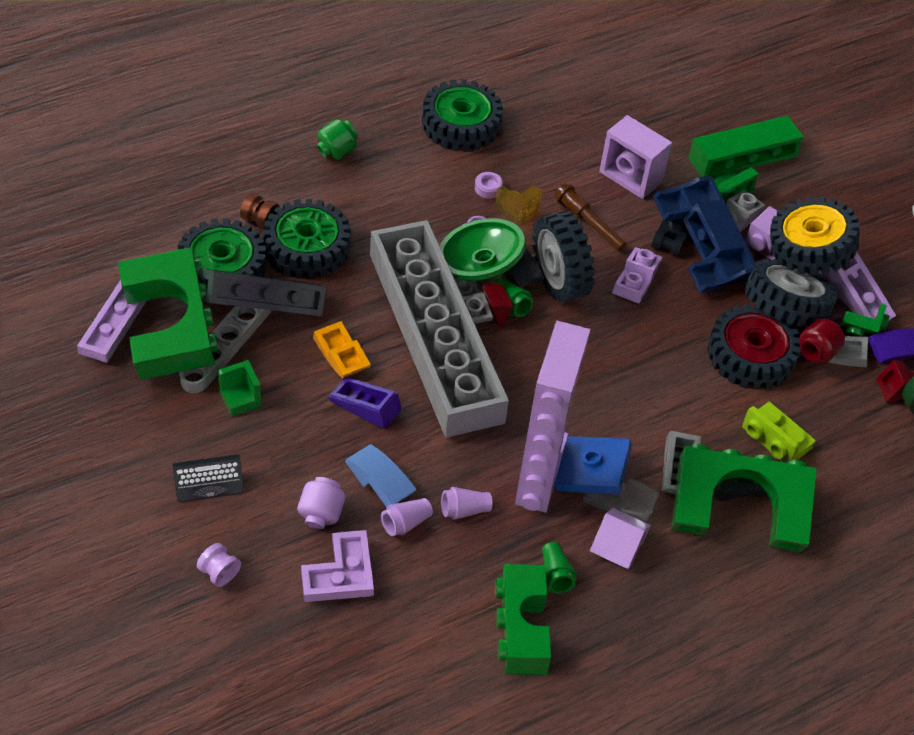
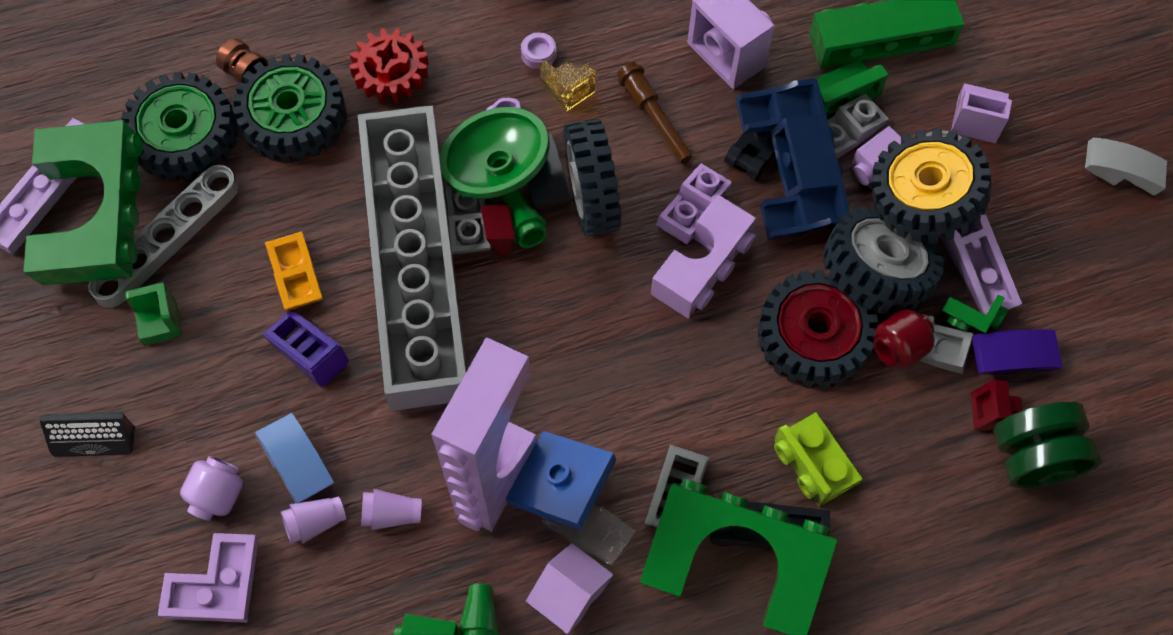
camera: 15 degrees right, 15 degrees up
(218, 564) = (69, 556): lavender wheel -> none
(264, 292) = (205, 185): black fence -> none
(364, 206) = (389, 62): none -> red gear
(649, 324) = (688, 282): none -> lavender arch
(834, 188) = (981, 113): none -> lavender piece

